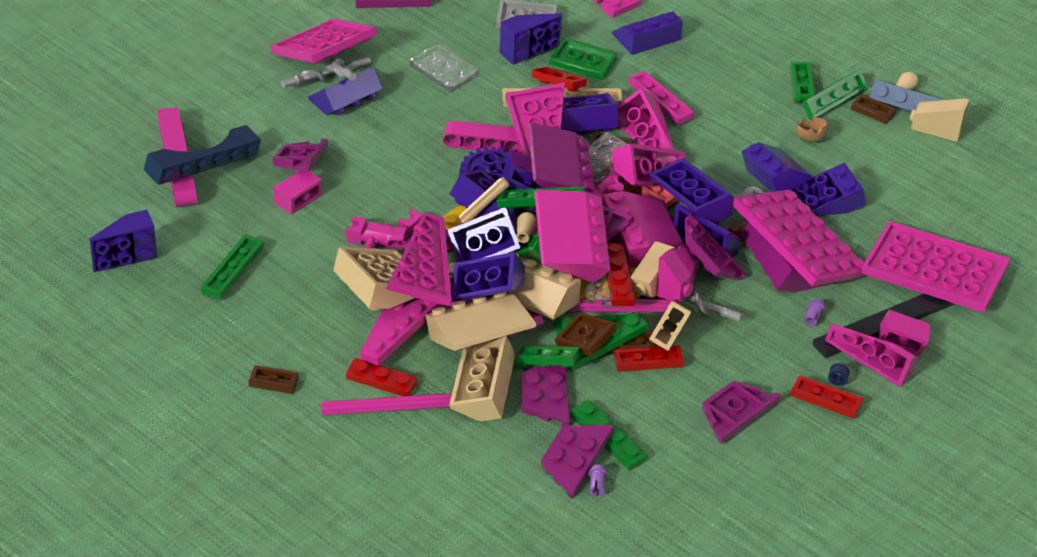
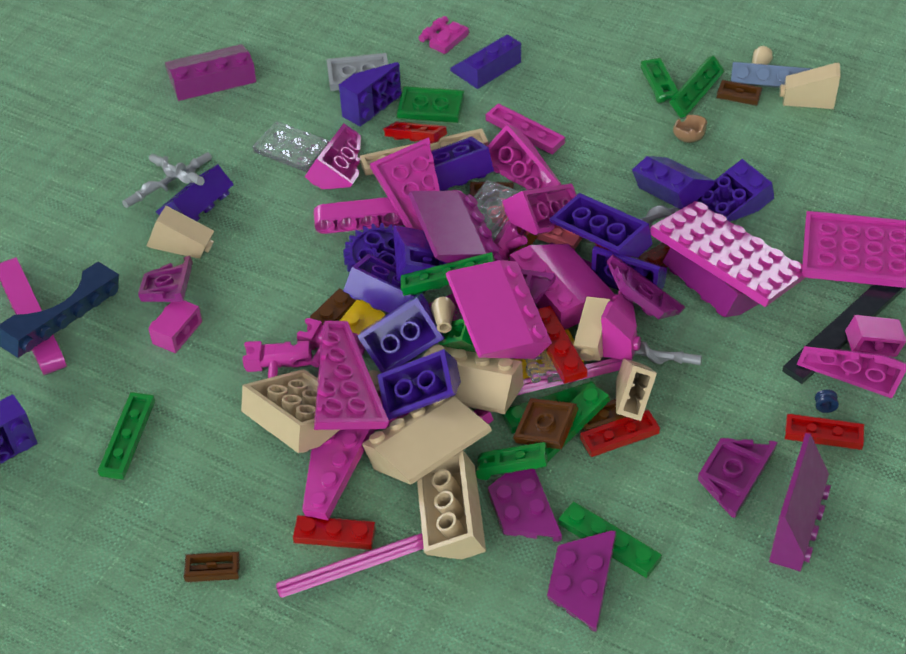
camera: 10 degrees left, 5 degrees up
(323, 40) = (156, 145): dark pink plate -> none
(323, 119) = (180, 234): none -> tan slope
(439, 206) = (334, 307): none -> reddish brown plate
(481, 88) = (338, 161): none -> dark pink wedge
(484, 200) = (385, 291): tan axle -> none
(597, 474) = (616, 596): medium lavender pin -> none
(775, 441) = (801, 509): none -> magenta slope
(816, 308) = (771, 333): medium lavender pin -> none

